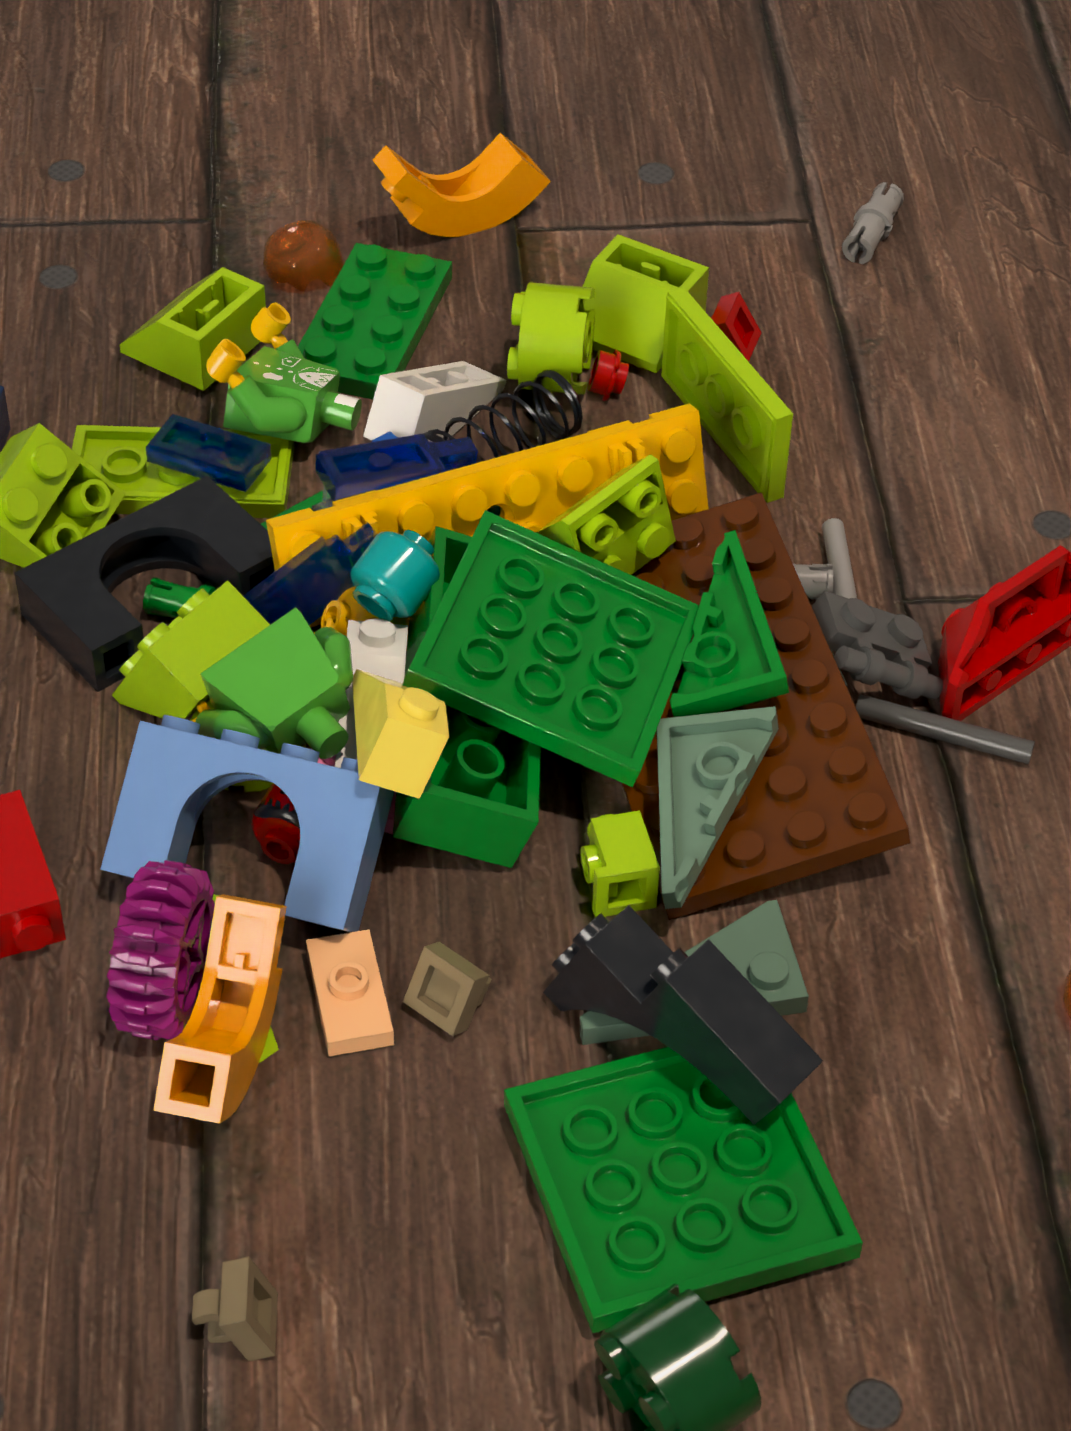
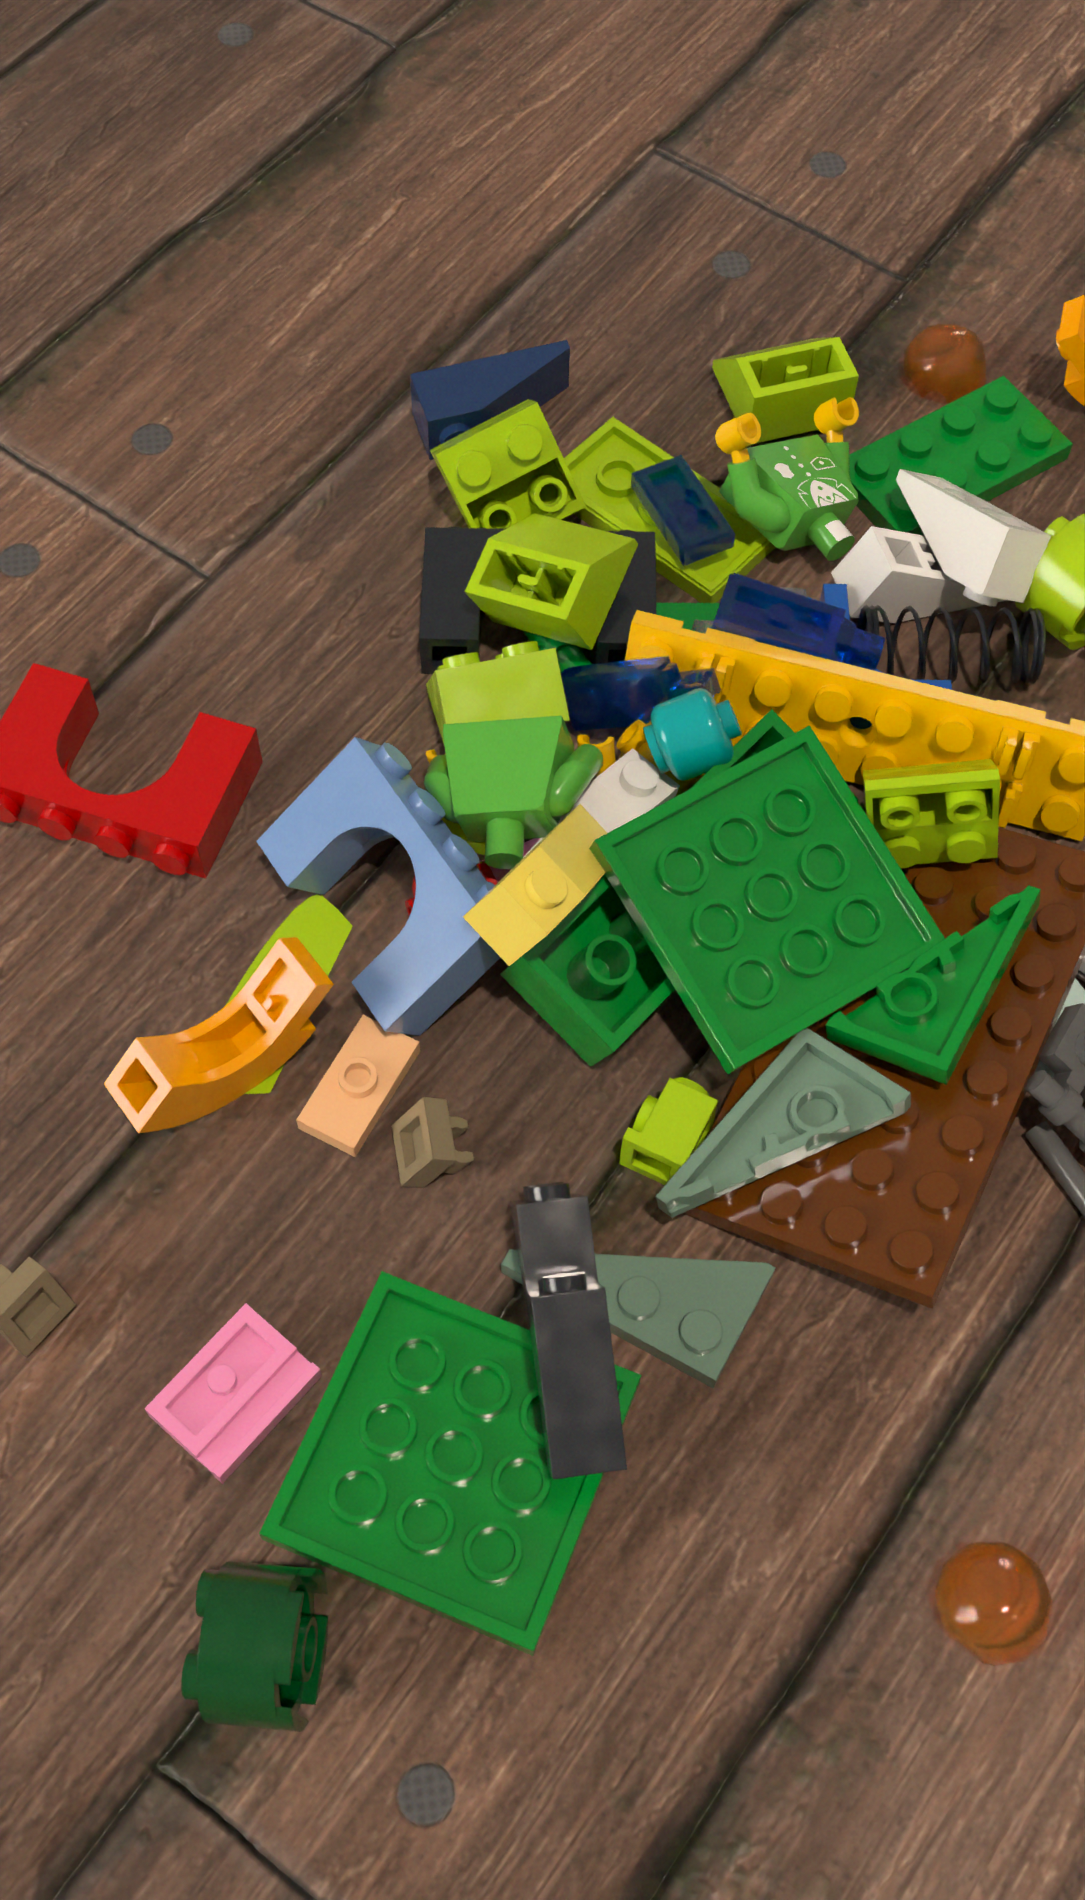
camera: 40 degrees right, 15 degrees up
(160, 949) = (220, 943): magenta gear -> none
(168, 544) = (551, 578): none -> lime slope
(460, 348) = (974, 539): none -> white slope
(472, 1252) = (233, 1392): none -> bright pink plate

